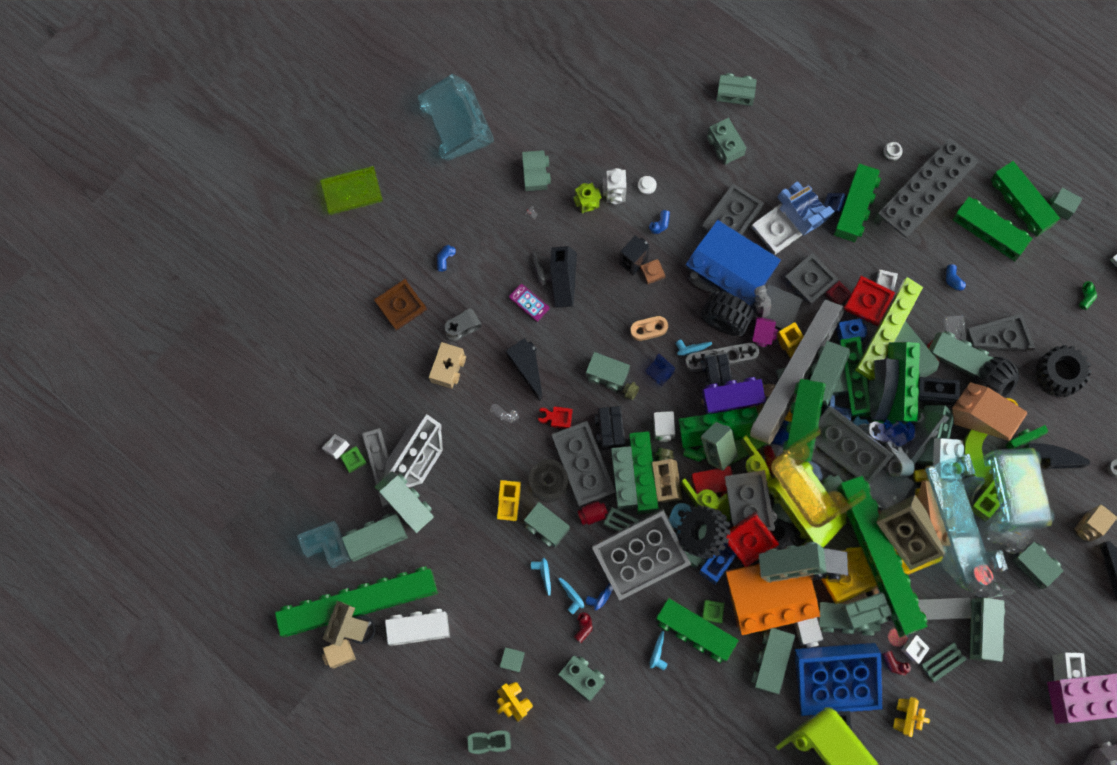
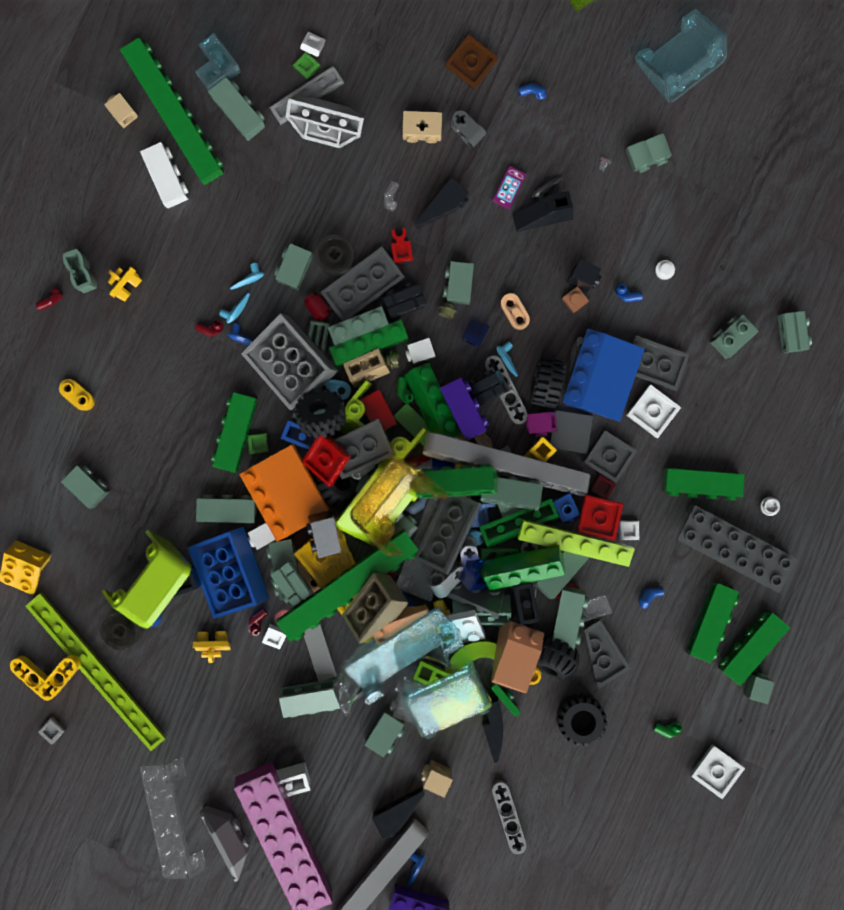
camera: 70 degrees right, 15 degrees up
(344, 625) = (142, 104): dark tan piece -> none
(405, 501) = (275, 124): brick -> none
(509, 500) = (306, 224): yellow brick -> none
(512, 660) = (162, 271): sand green tile -> none
(582, 677) = (162, 339): sand green brick -> none
(587, 197) = (628, 217): lime brick -> none
(615, 186) = (652, 236): white brick -> none
(655, 661) = (205, 402): medium azure bar -> none
(719, 446) = (411, 408): sand green brick -> none
(762, 301) = (567, 412): light grey hinge -> none
(792, 562) = (312, 502): sand green brick -> none
(803, 208) = (681, 431): medium blue hips -> none
(835, 201) = (696, 460): dark blue plate -> none
(883, 388) = (511, 550): black slope -> none
(956, 653) = (282, 675): sand green tile -> none
(983, 574) = (356, 683): clear tile -> none

